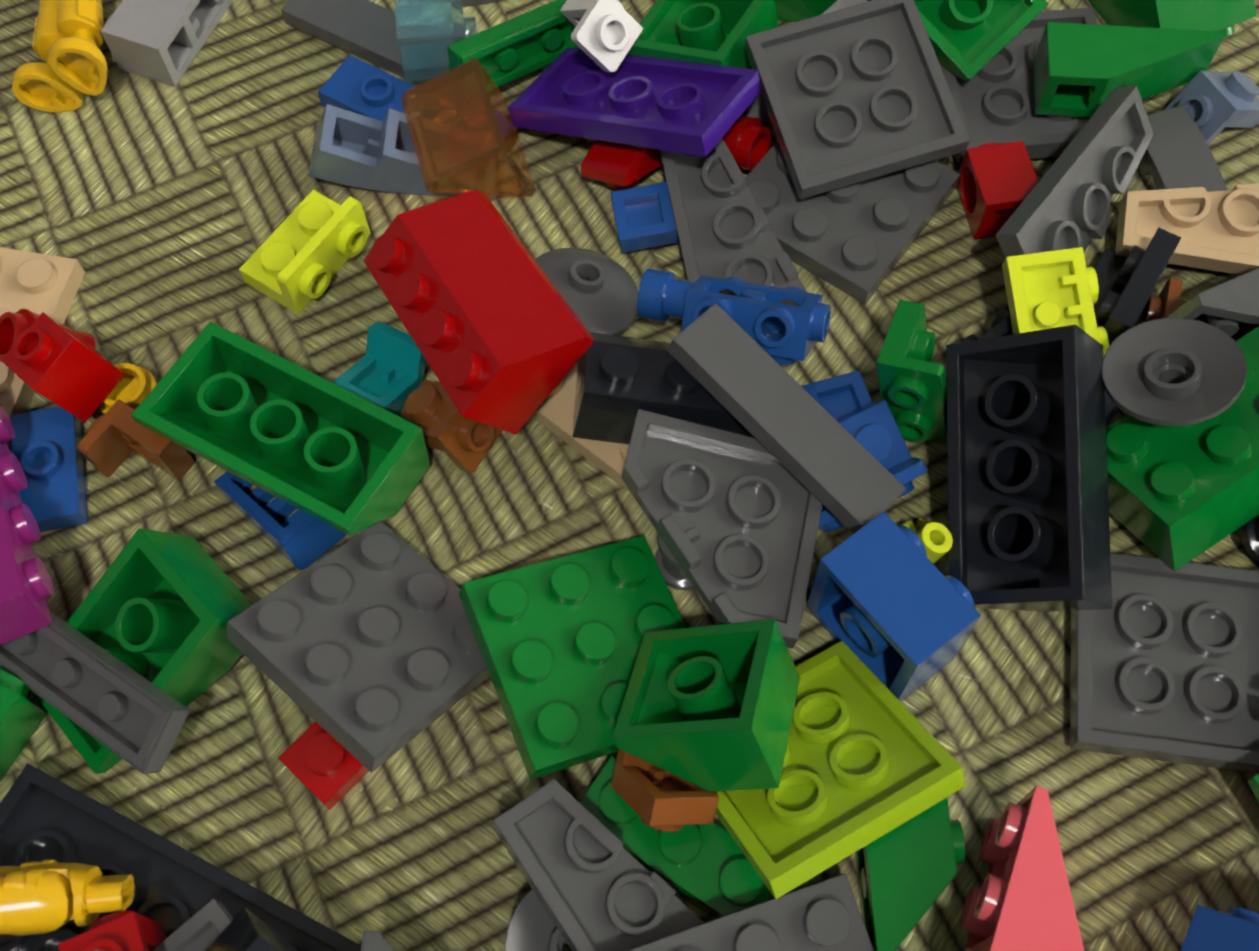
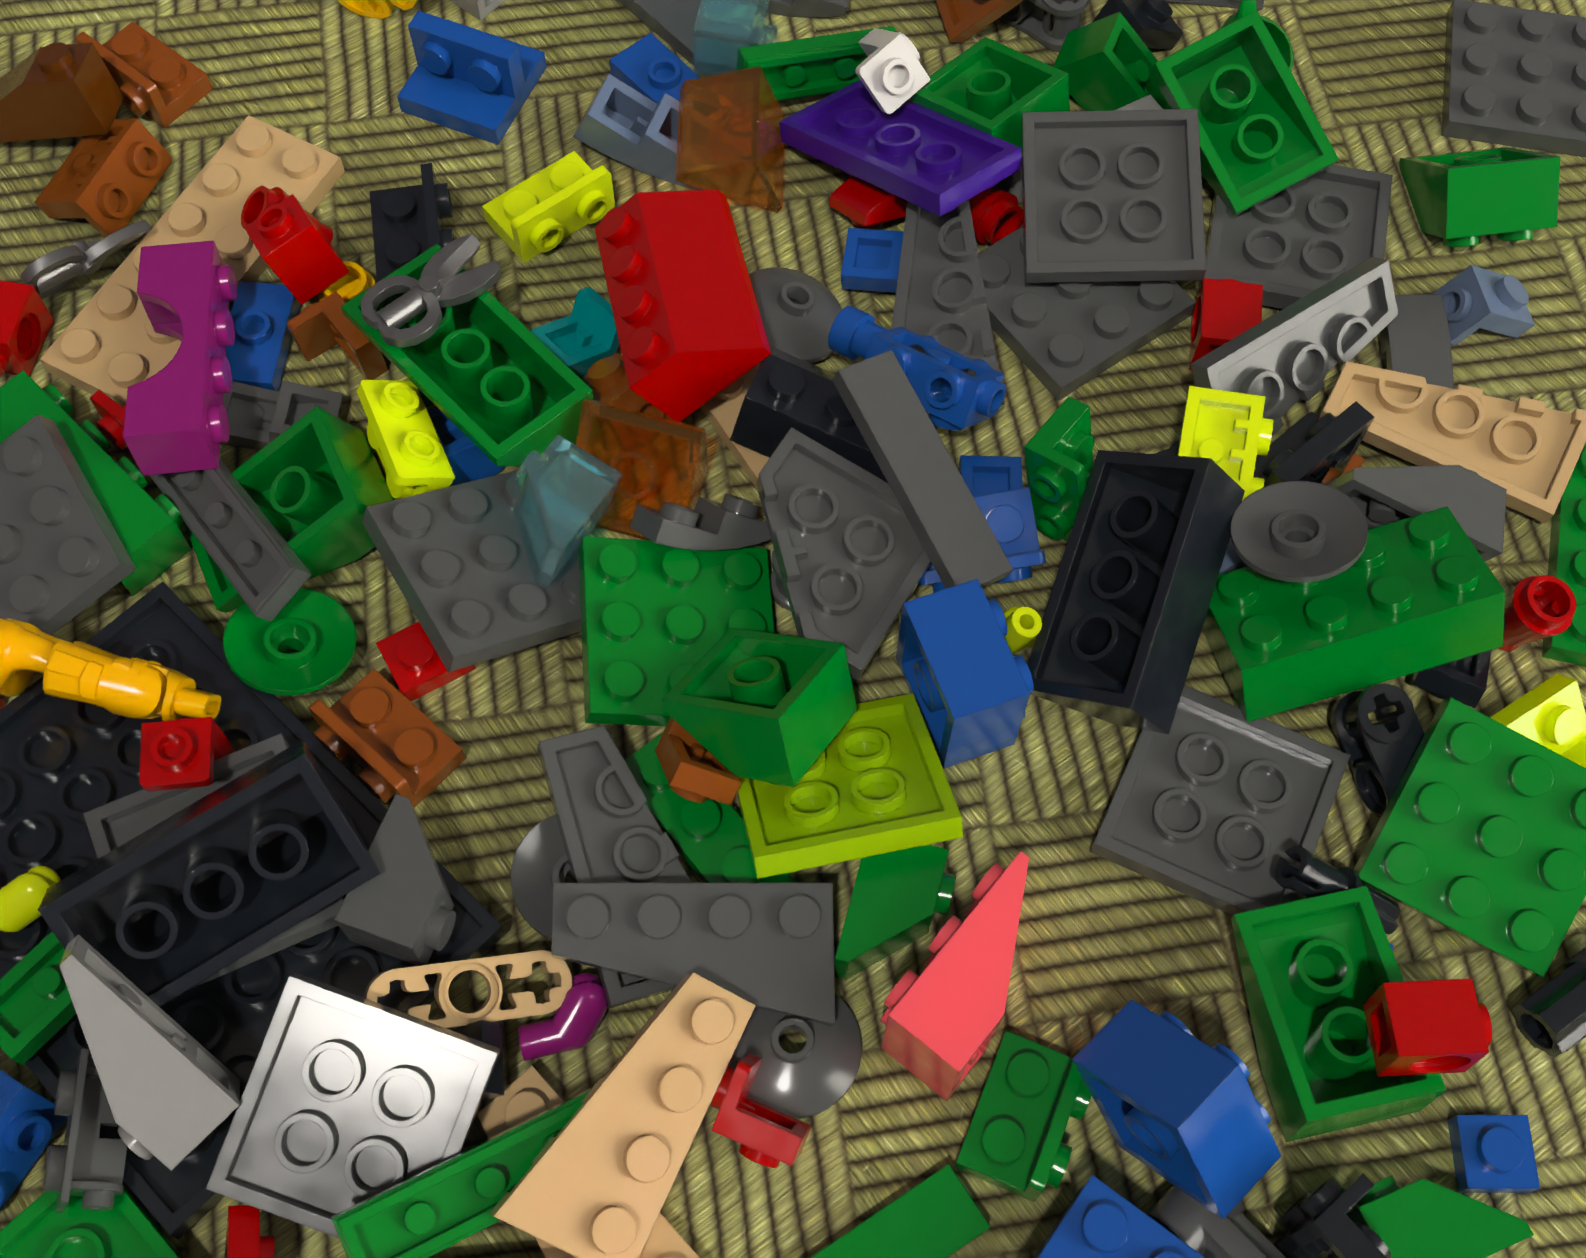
camera: 15 degrees right, 0 degrees up
(84, 549) = (263, 414): none -> dark grey slope
(171, 308) = (409, 221): none -> black bracket
(181, 145) = (468, 77): none -> blue bracket
(201, 759) = (306, 624): none -> green dish
(225, 370) = (435, 289): none -> flat silver piece
(240, 534) = (404, 438): none -> neon yellow bracket
(324, 858) = (387, 739): none -> dark orange bracket
(425, 556) = (560, 503): none -> clear light blue slope
(488, 498) = (654, 454): none -> clear orange slope
(579, 535) = (707, 527): none -> dark grey slope
(1085, 62) = (1358, 224): green slope -> none

